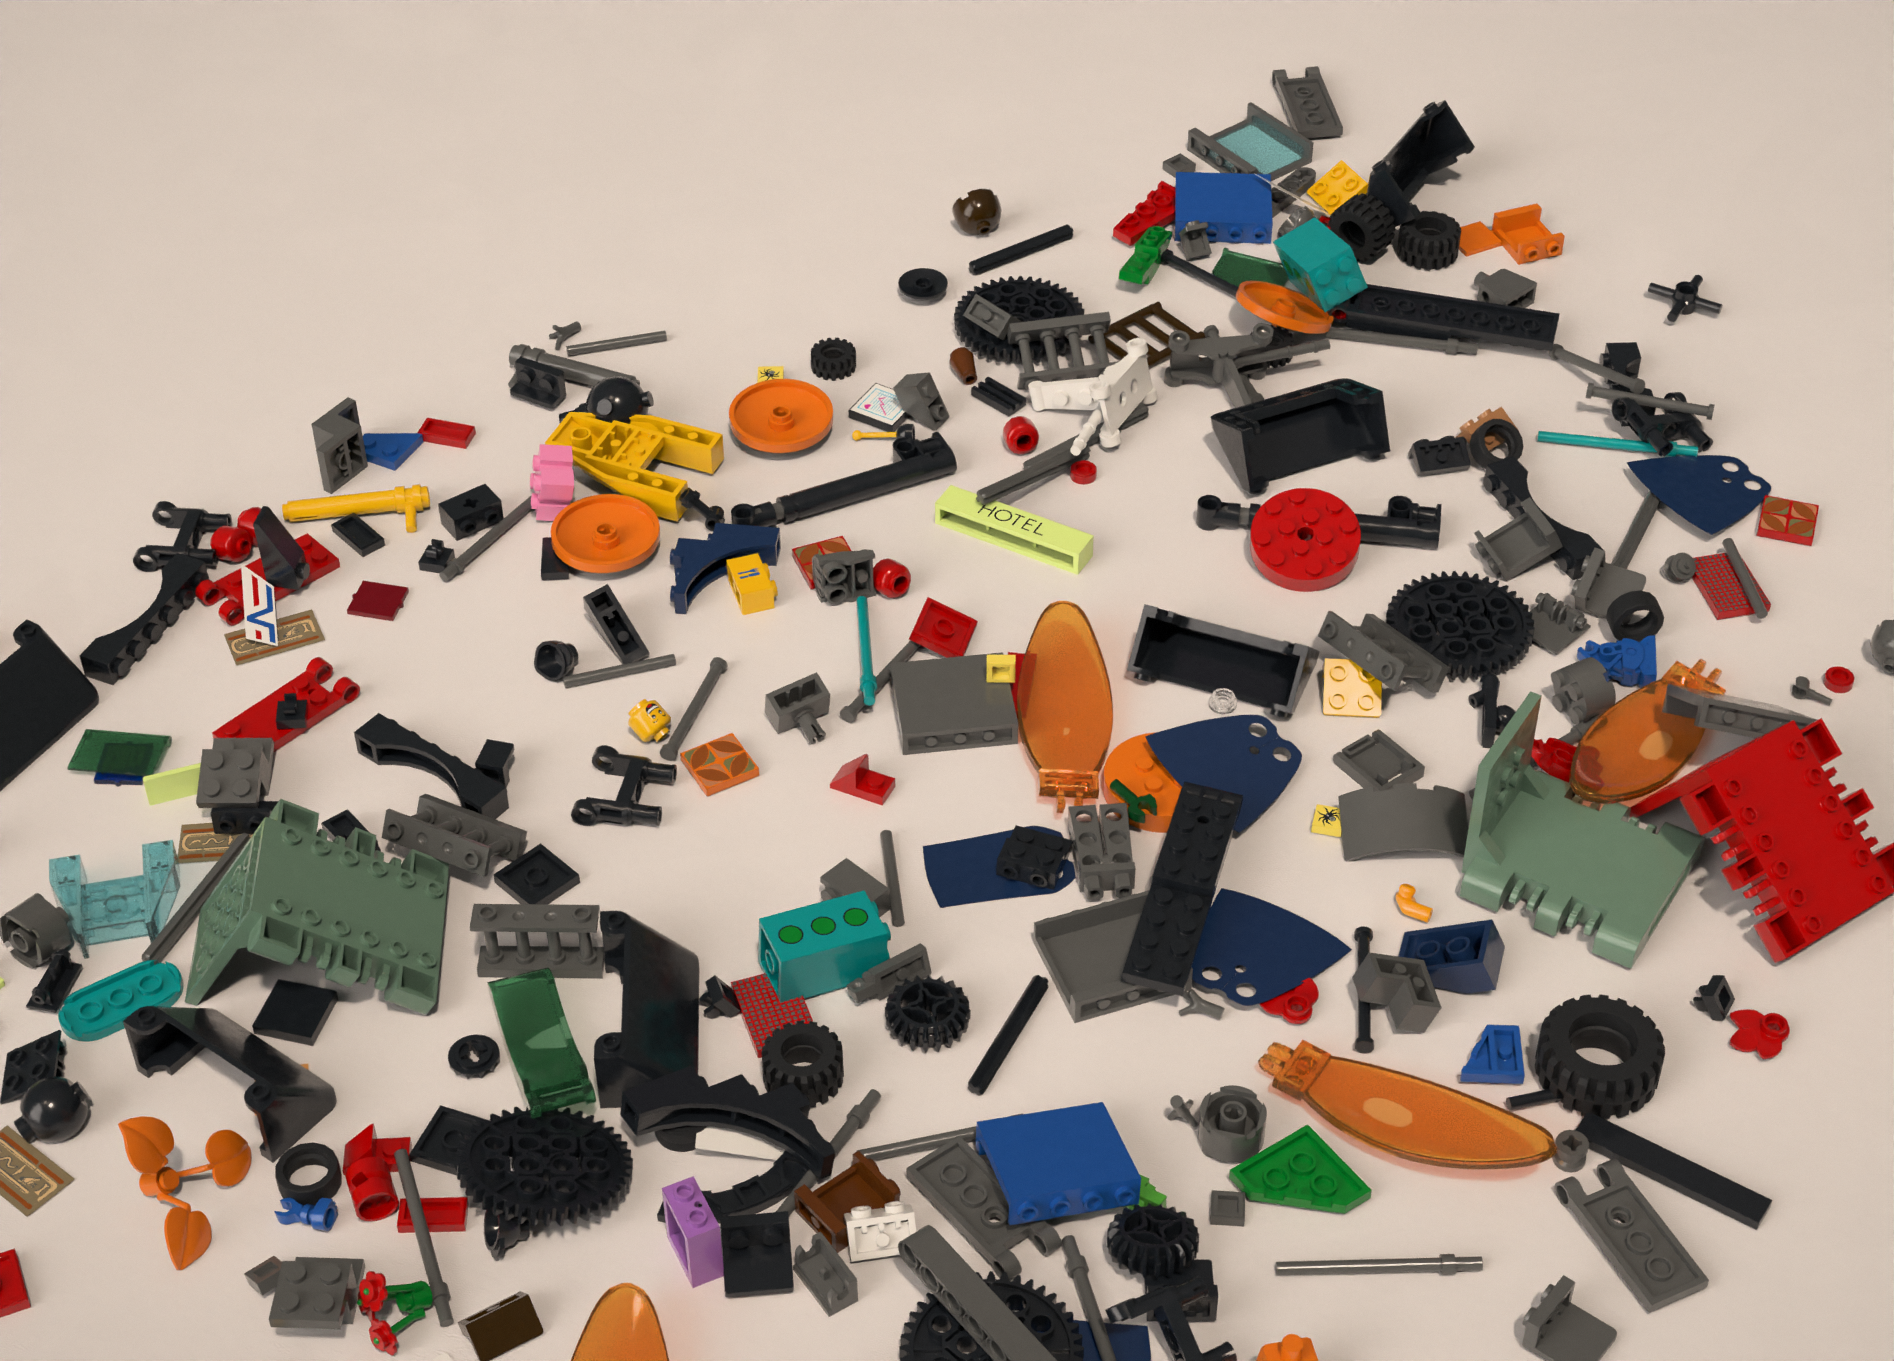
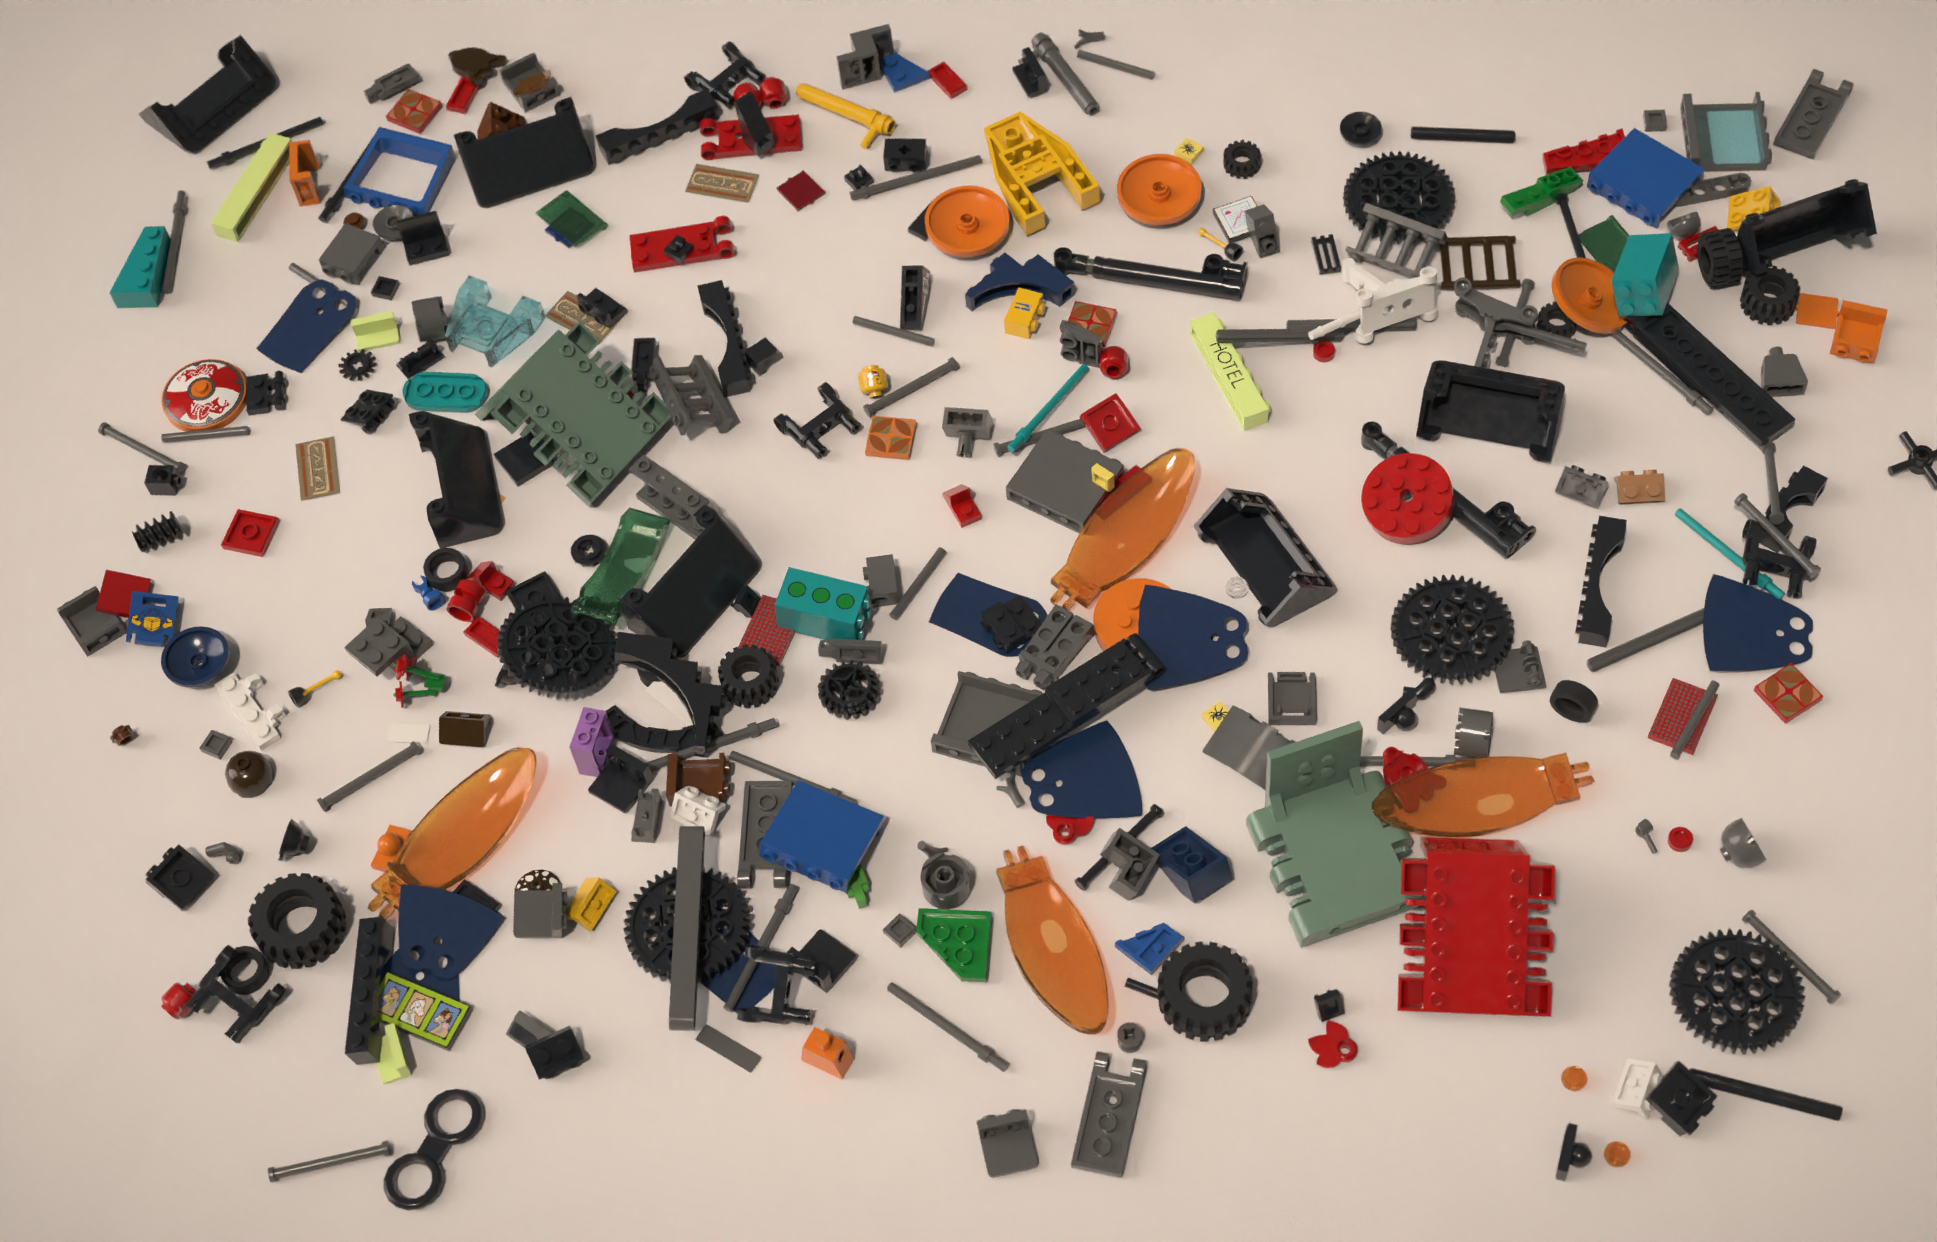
camera: 45 degrees right, 15 degrees up
(52, 1110) = (353, 443): black brick -> none
(147, 1144) = (360, 504): orange plant -> none
(172, 784) = (582, 259): yellowish green panel -> none
(193, 904) = (519, 355): dark grey axle -> none
(235, 773) = (608, 275): dark grey bracket -> none
(259, 608) = (724, 157): white sticker -> none
(358, 534) = (829, 132): black tile -> none
(438, 1288) = (451, 685): dark grey bar -> none
(536, 877) = (720, 452): black tile -> none
(551, 481) = (963, 162): bright pink brick -> none
(555, 659) = (860, 300): black piece -> none
(616, 400) = (1055, 119): black piece -> none
(712, 514) = (1049, 245): black bar -> none
(964, 365) = (1324, 215): reddish brown cone -> none
(977, 212) = (1454, 86): dark brown cylinder -> none
(989, 316) = (1371, 186): dark grey panel -> none
(1008, 1035) = (884, 734): black axle -> none
(1020, 435) = (1305, 297): red head -> none
(1136, 803) = (1098, 627): dark green bar -> none
(1153, 1240) = (830, 921): black gear -> none
(1195, 240) = (1591, 198): dark grey bracket -> none
(1296, 197) = (1705, 200): white sticker -> none
(1350, 690) = (1328, 630): yellow bracket -> none
(1383, 651) = (1383, 614): dark grey fence -> none
(1409, 905) = (1207, 808): light orange arm -> none
(1506, 431) = (1644, 497): black tyre -> none
(1519, 542) = (1556, 591): dark grey panel -> none
(1604, 584) = (1581, 662): dark grey bracket -> none
(1625, 660) = (1537, 728): blue piece -> none
(1675, 1171) = (1180, 1093): black tile -> none
(1679, 567) = (1658, 681): dark grey wheel -> none
(1729, 712) = (1543, 822): dark grey panel -> none

